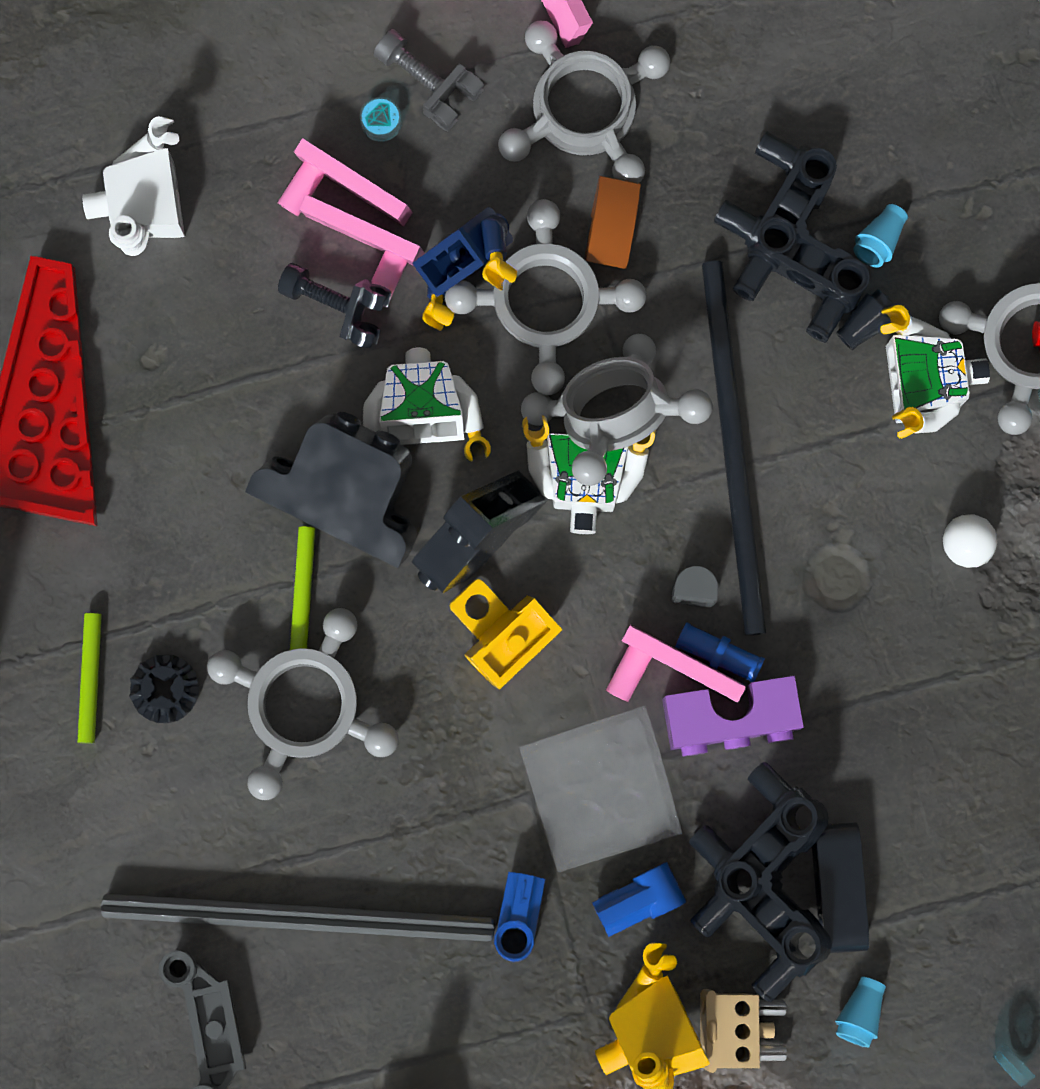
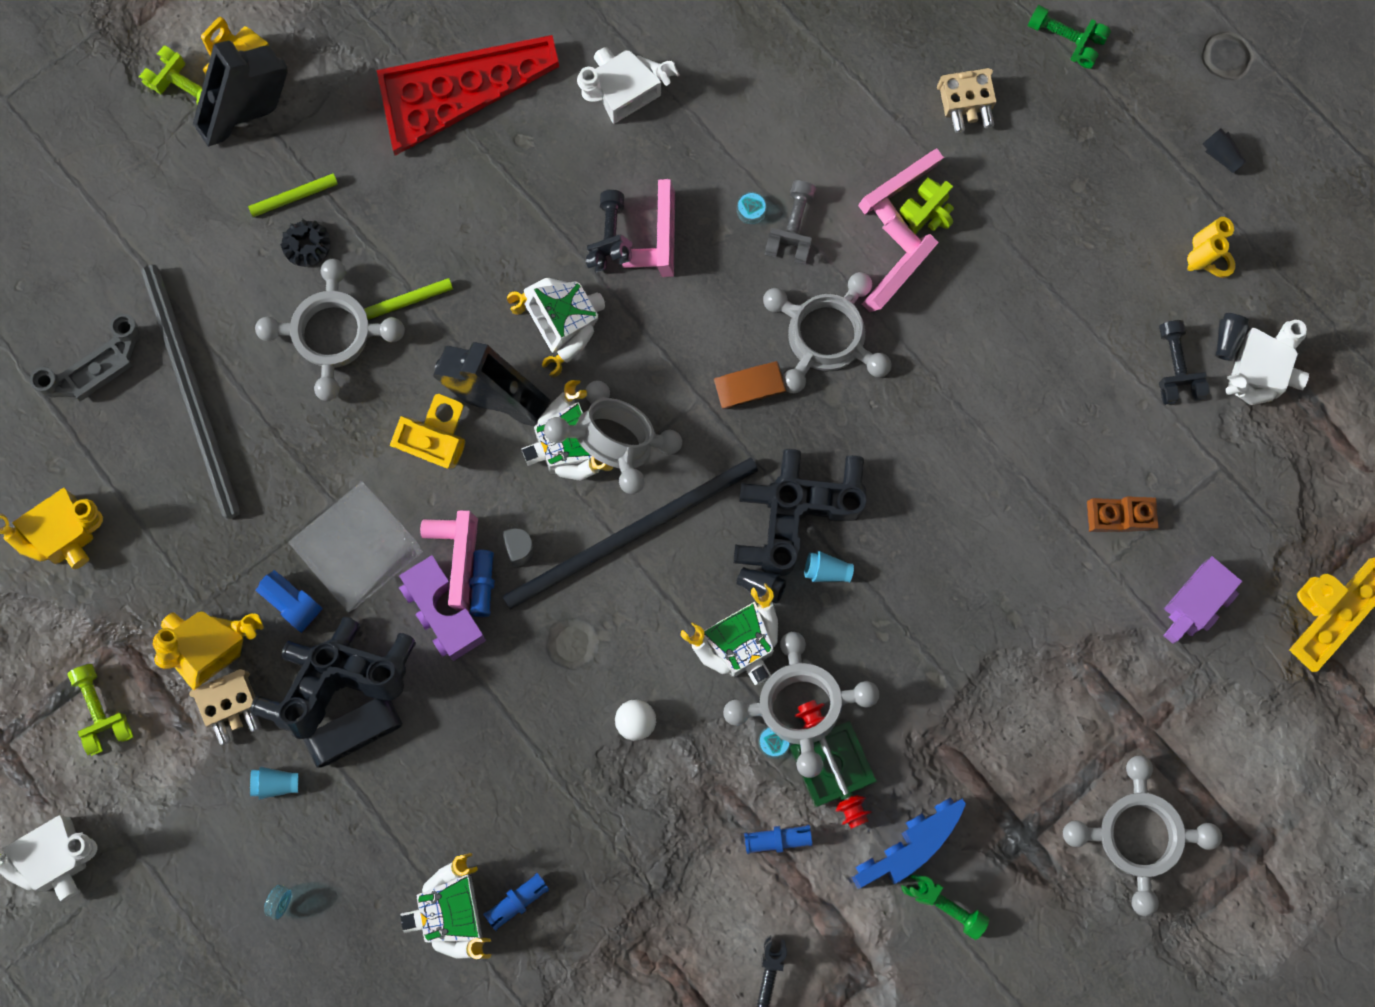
camera: 65 degrees right, 5 degrees down
(319, 164) = (699, 183): bright pink piece -> none
(344, 486) = (484, 289): black brick -> none
(459, 255) = (675, 296): dark blue torso -> none
(520, 911) = (249, 527): blue piece -> none
(543, 218) = (649, 309): light grey piece -> none

